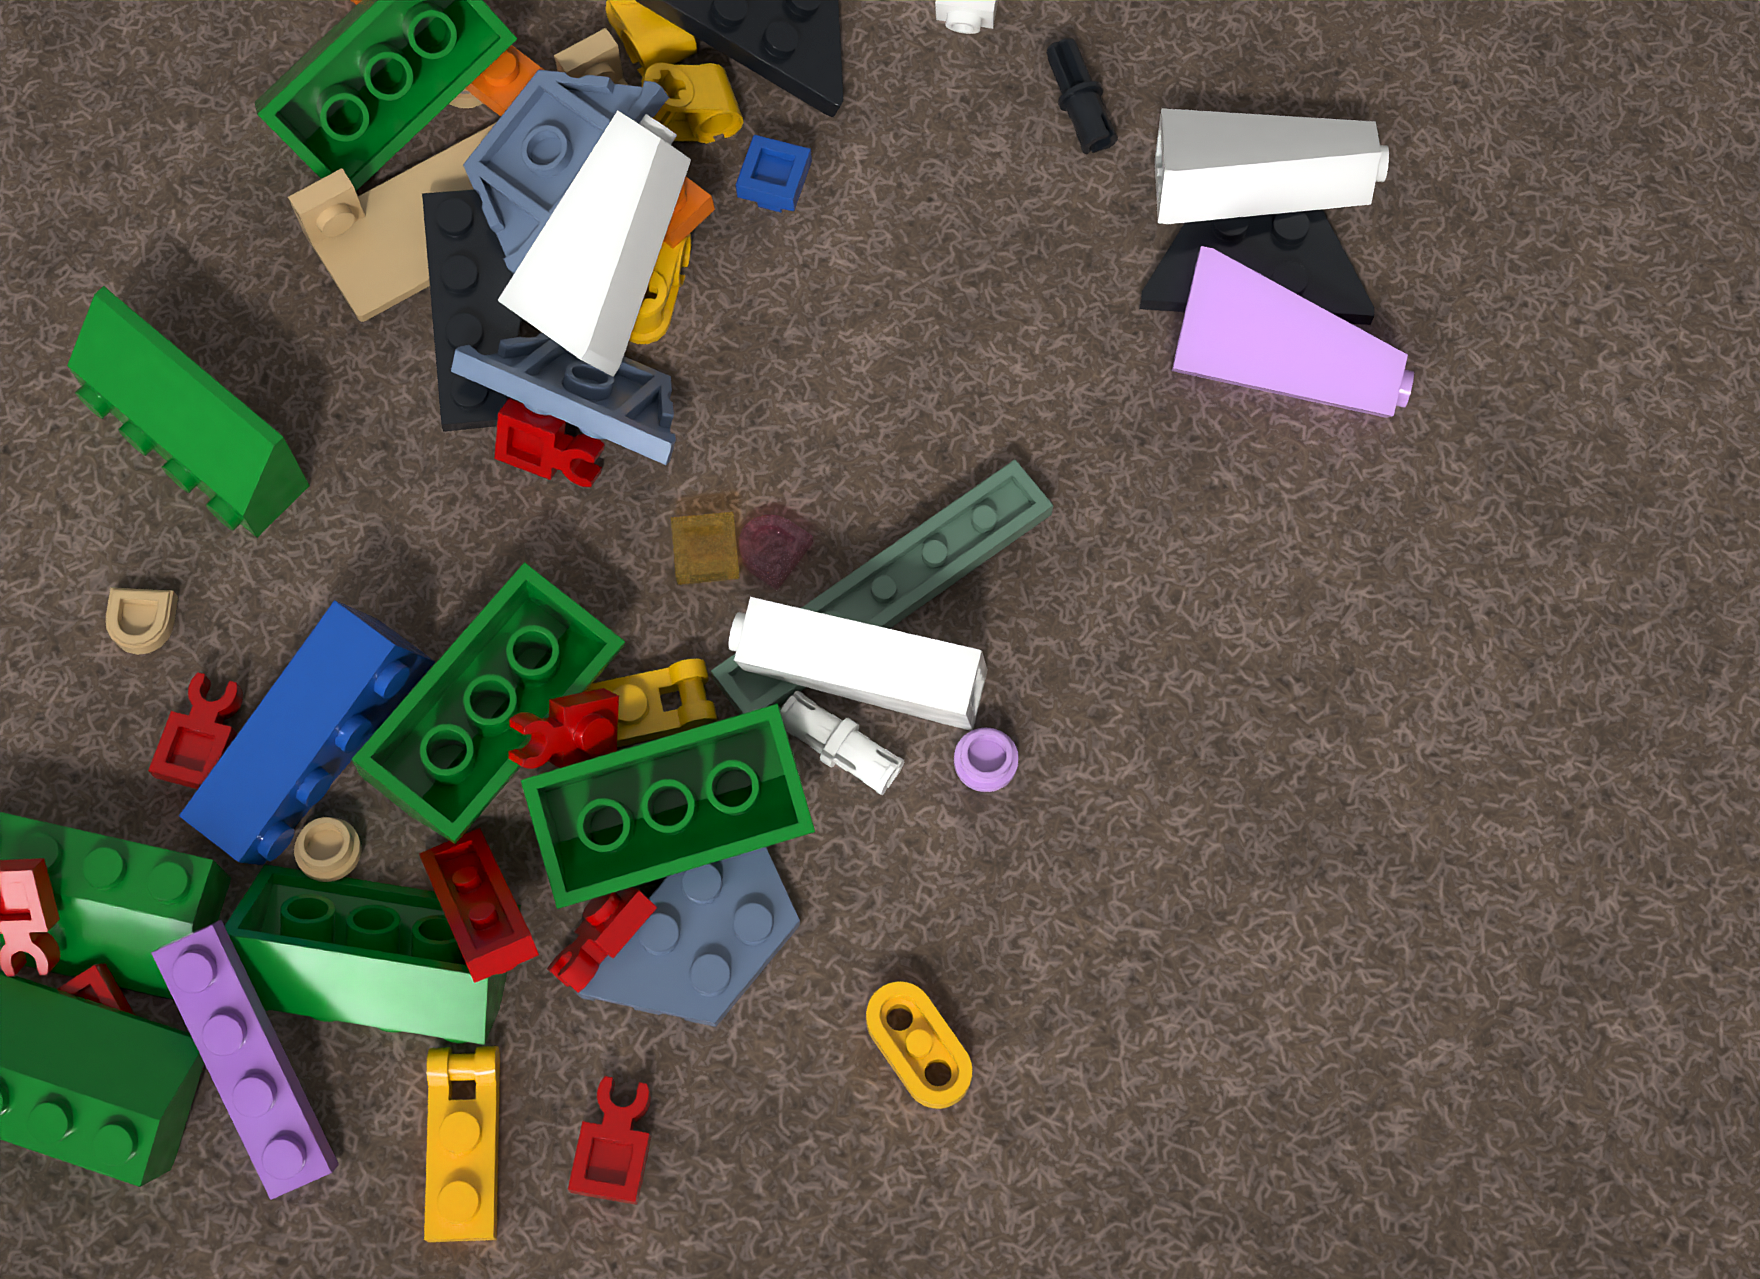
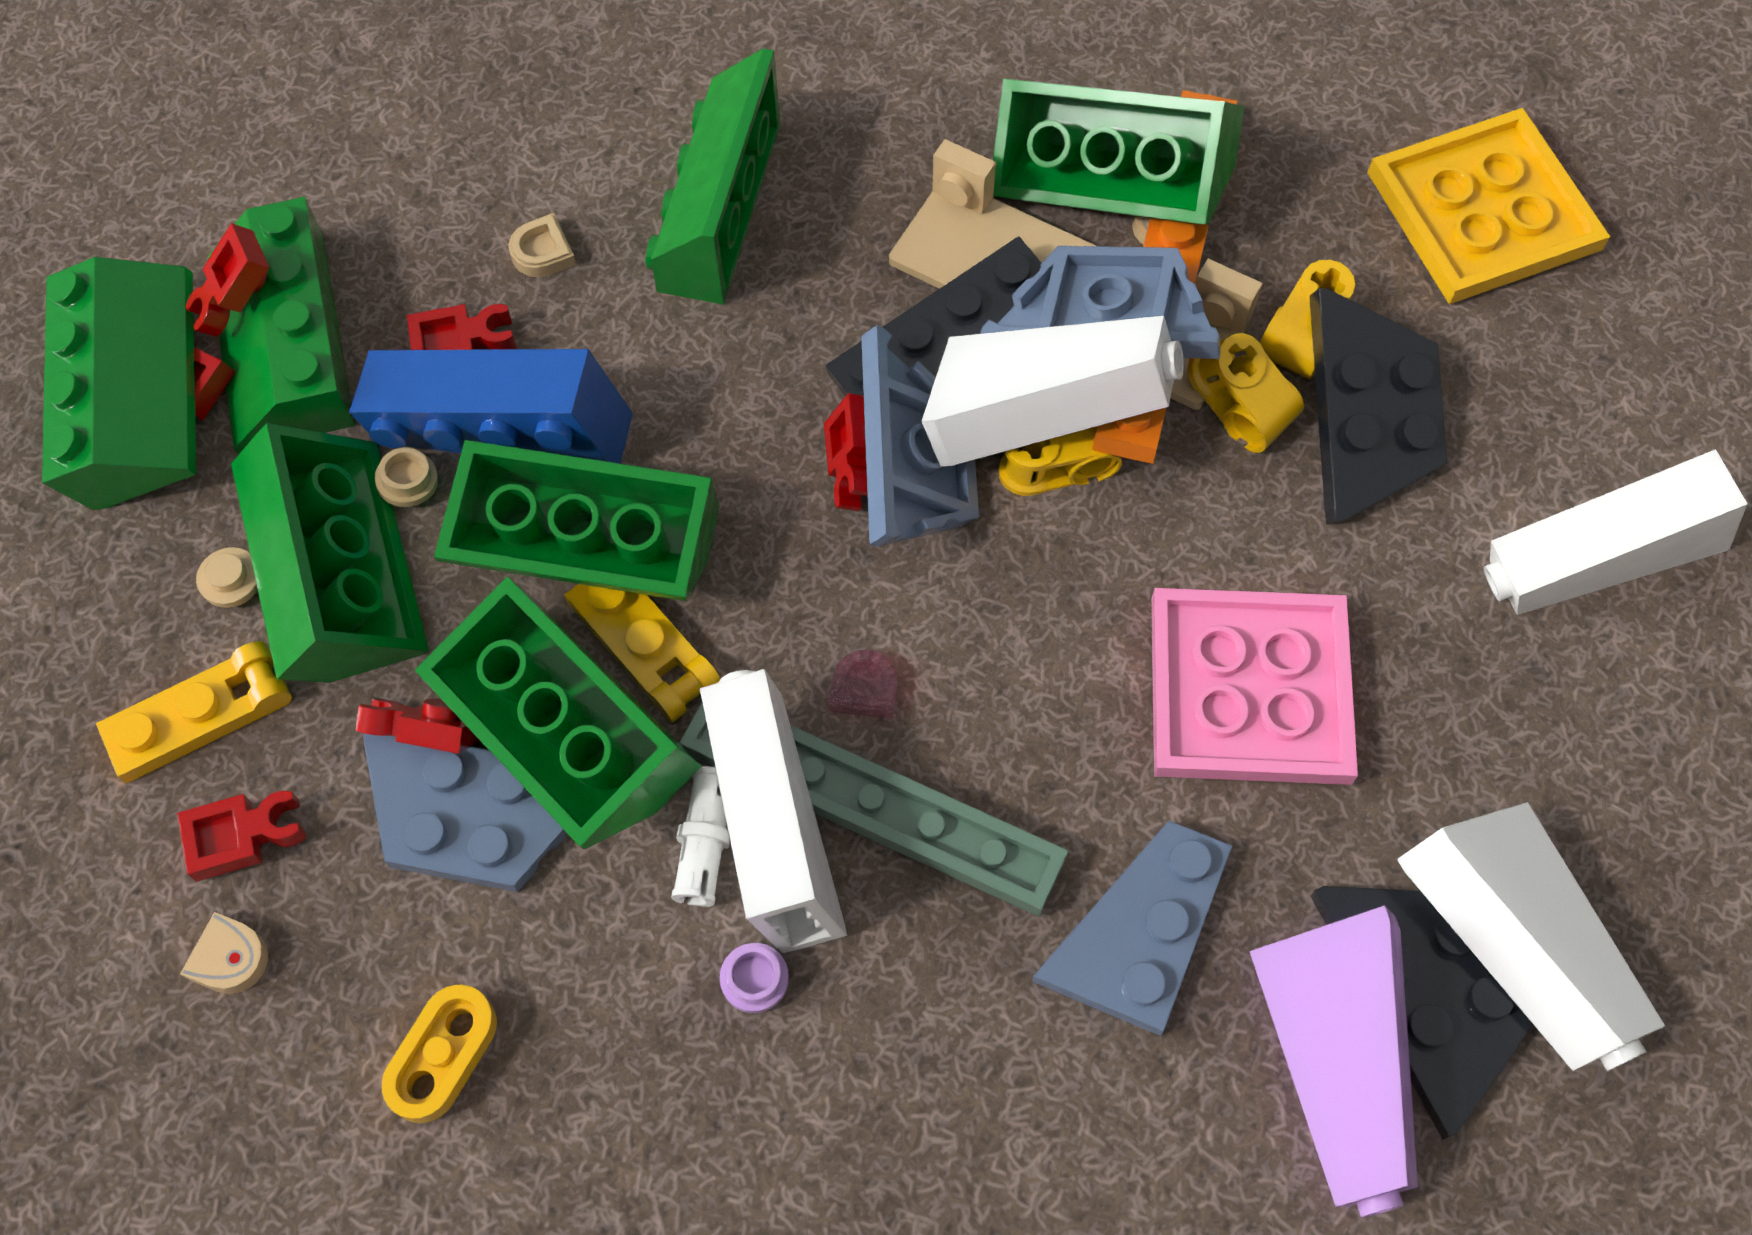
camera: 65 degrees right, 5 degrees down
(245, 1059) = (181, 504): medium lavender plate -> none
(336, 1057) = (227, 577): none -> tan plate
(478, 906) = (385, 607): red plate -> none
(575, 731) = (579, 600): red plate -> none
(705, 548) = (829, 627): clear yellow plate -> none
(727, 1201) = (227, 956): none -> tan tile
(773, 173) = (1225, 495): blue tile -> none
(947, 250) = (1252, 686): none -> bright pink plate
(1081, 97) = (1495, 725): black axle -> none
(1106, 443) = (1142, 931): none -> sand blue wing

